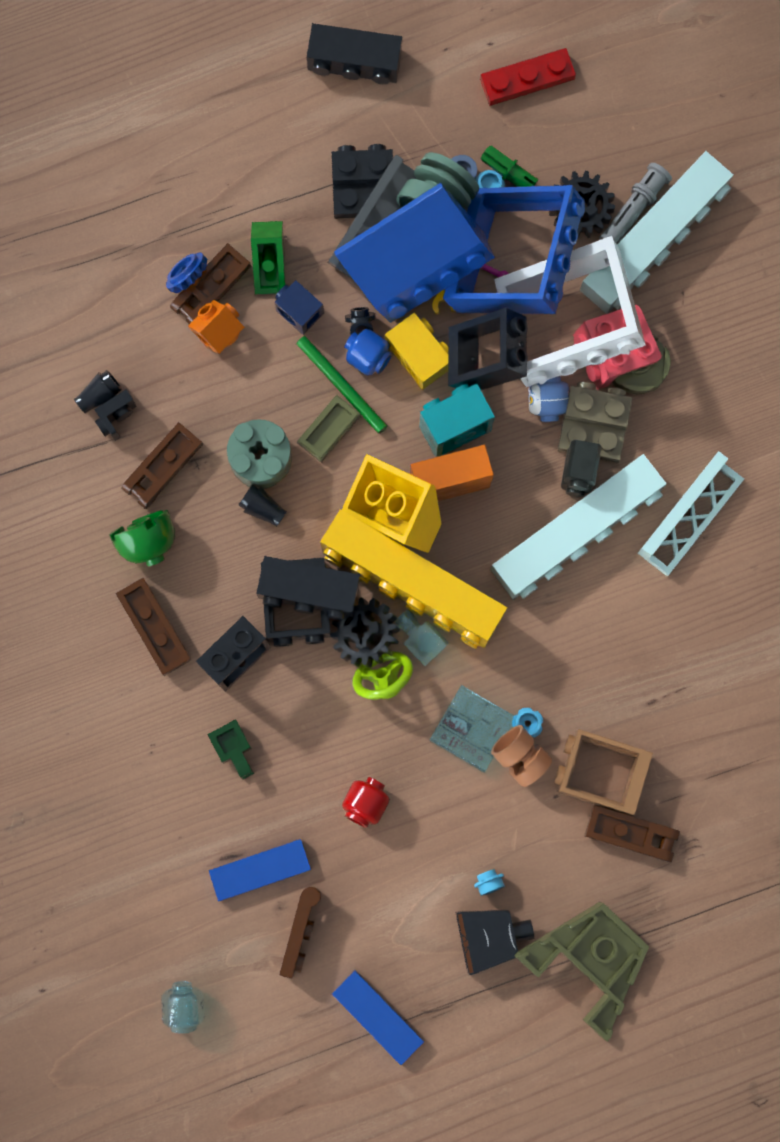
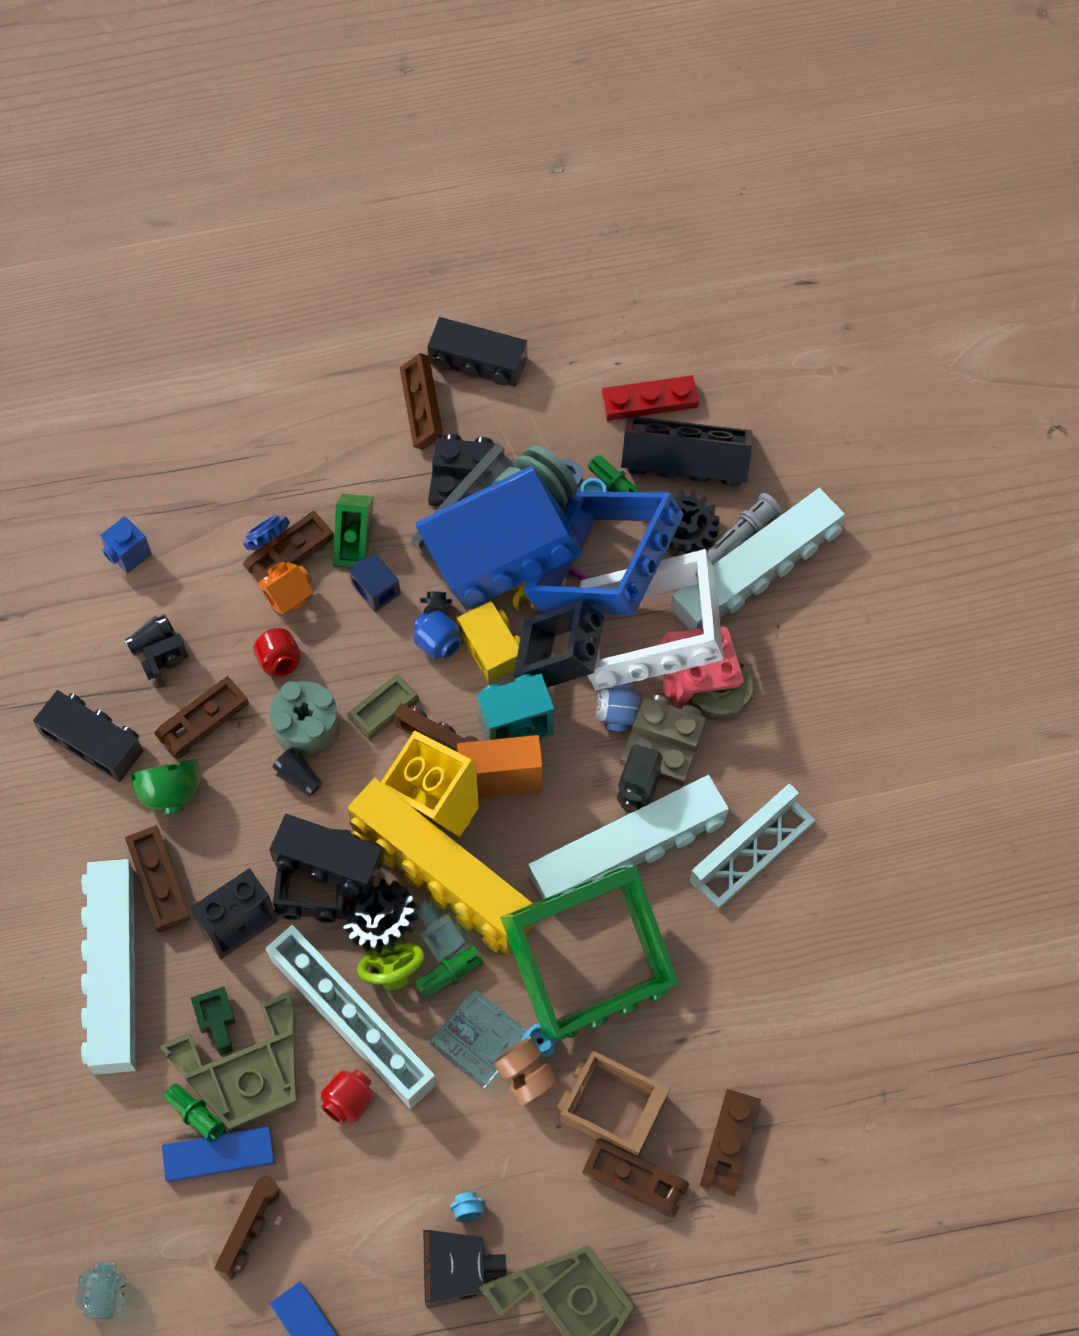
camera: 10 degrees right, 15 degrees down
(54, 305) = (125, 545): none -> blue brick
(60, 498) = (89, 734): none -> black brick
(128, 715) = (110, 967): none -> light aqua brick
(220, 391) = (277, 652): none -> red head
(232, 837) = (194, 1112): none -> green axle
(274, 802) = (248, 1081): none -> olive wing
(309, 113) = (421, 401): none -> reddish brown plate
(341, 384) = (405, 665): green bar -> none
(356, 730) = (351, 1017): none -> light aqua brick
(387, 450) = (416, 720): none -> reddish brown plate
(435, 673) = (448, 972): none -> green axle
(539, 598) = (625, 1001): none -> green window
(573, 127) = (687, 450): none -> black slope
(710, 787) = (730, 1141): none -> reddish brown plate

